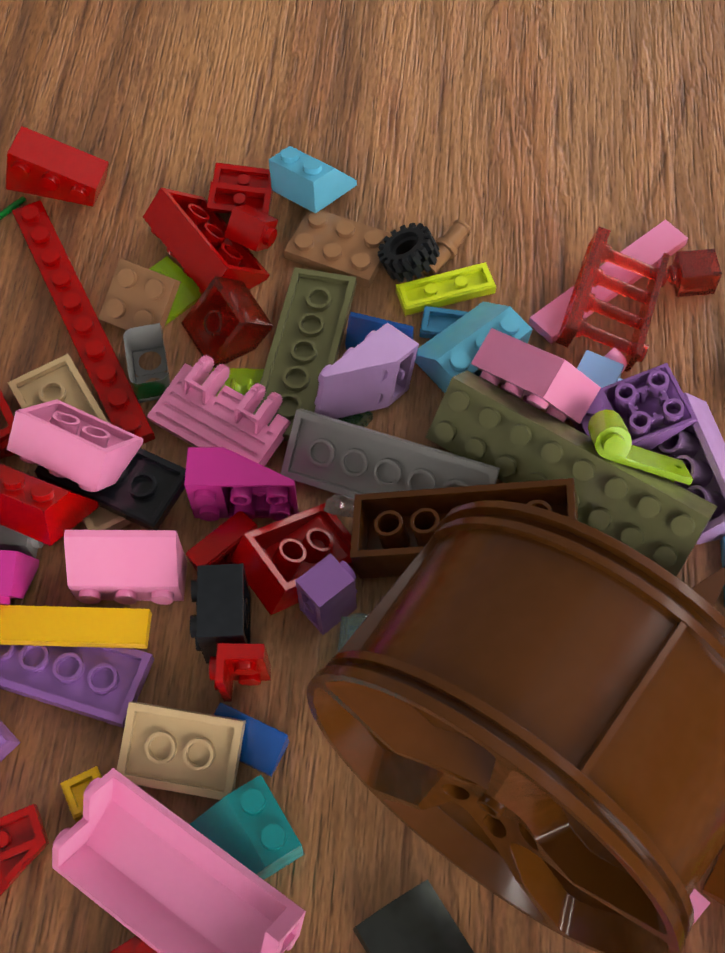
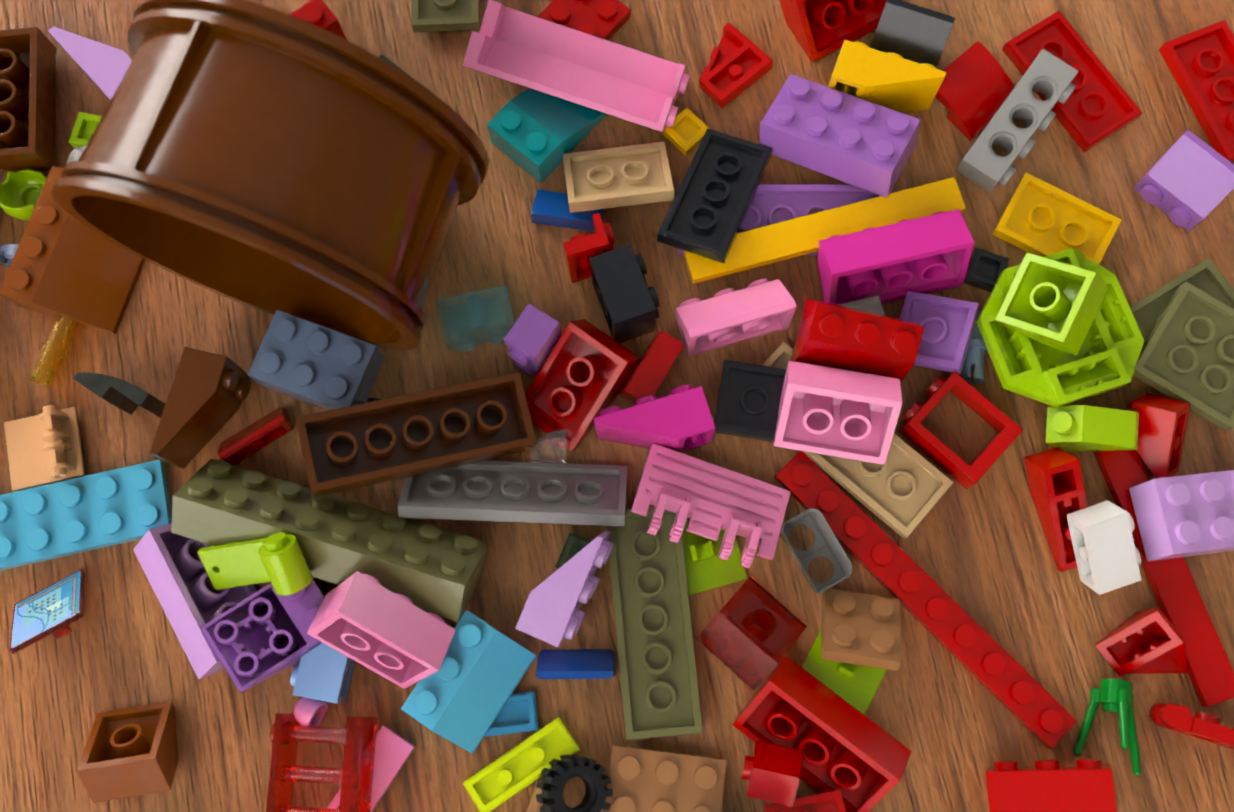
camera: 165 degrees right, 15 degrees up
(87, 694) = (715, 195): none -> black tile

